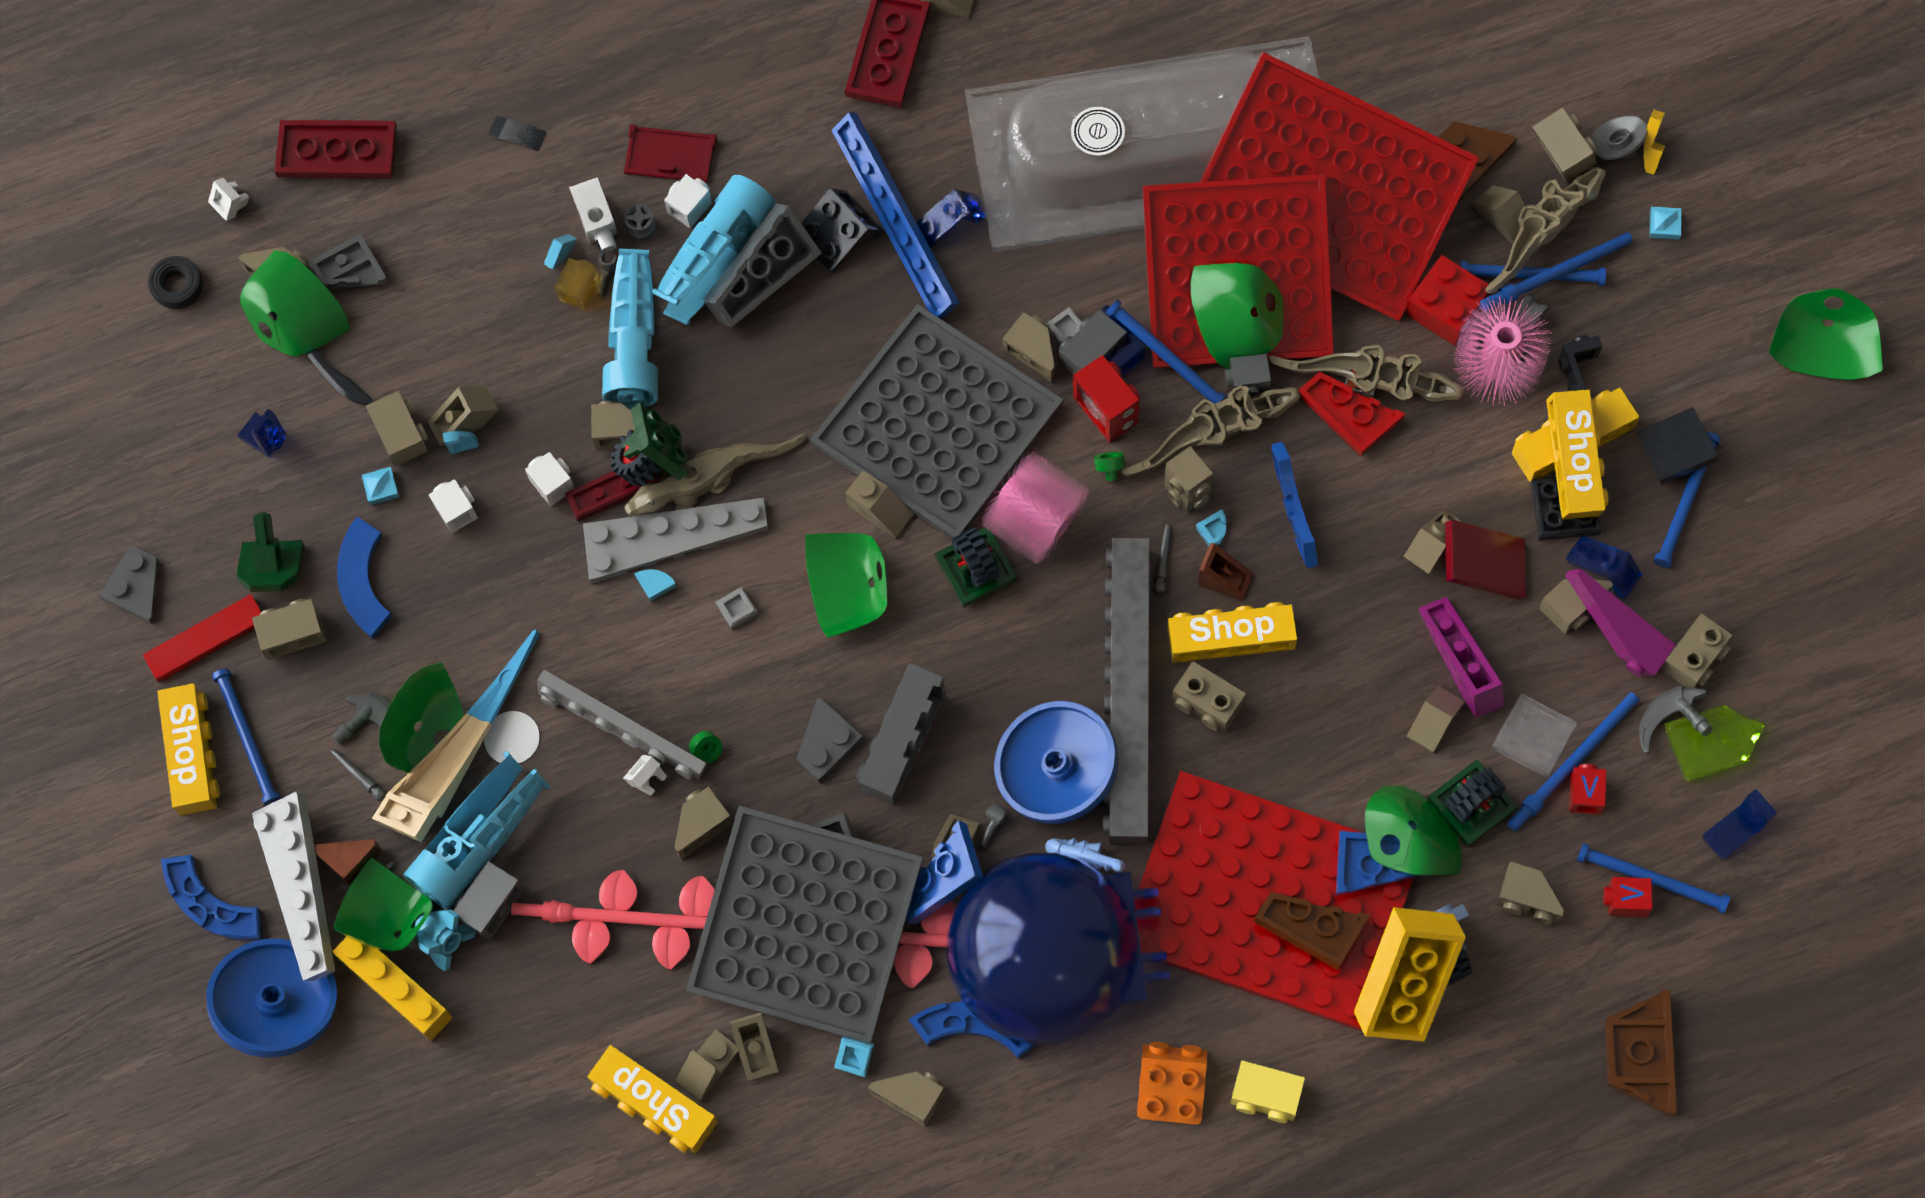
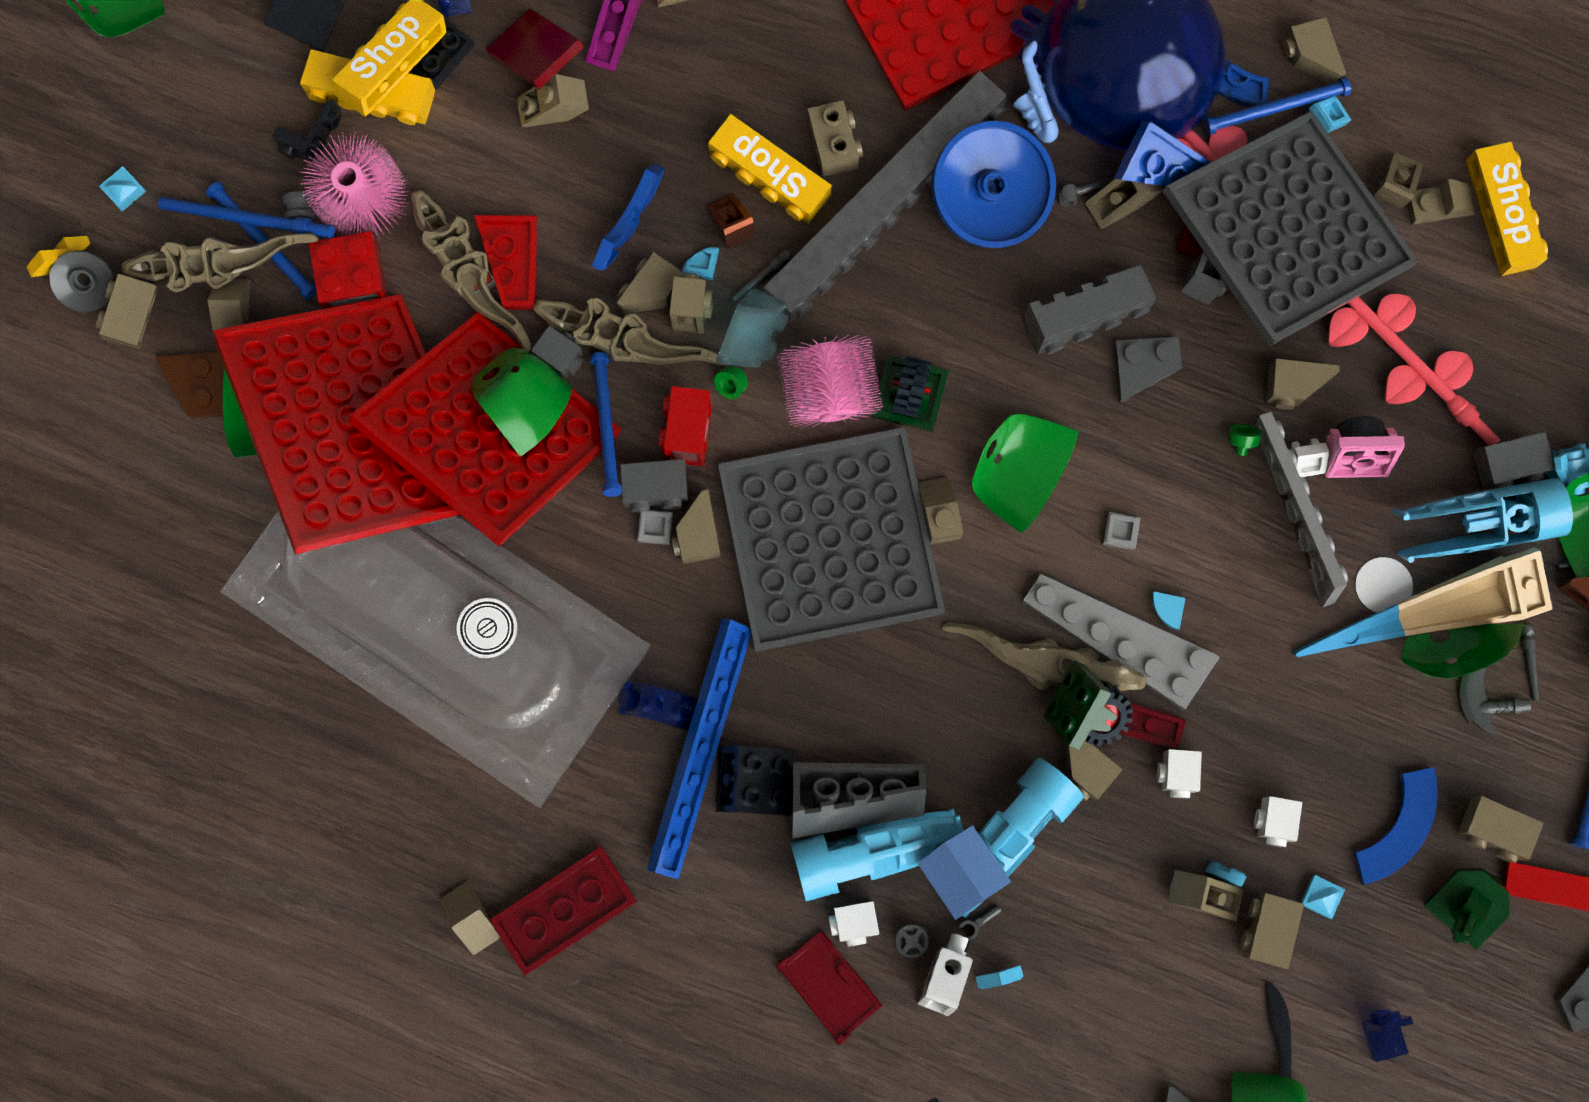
camera: 145 degrees left, 10 degrees up
(577, 283) = (1012, 930): clear yellow brick -> none
(611, 808) = (1362, 449): none -> bright pink piece
(638, 270) = (963, 872): none -> medium blue slope
(899, 1020) = (1341, 87): none -> blue bar
(1125, 498) = (753, 330): none -> clear light blue slope
(1130, 355) = (632, 454): clear blue bracket -> none
(1230, 478) = (650, 287): none -> dark tan slope

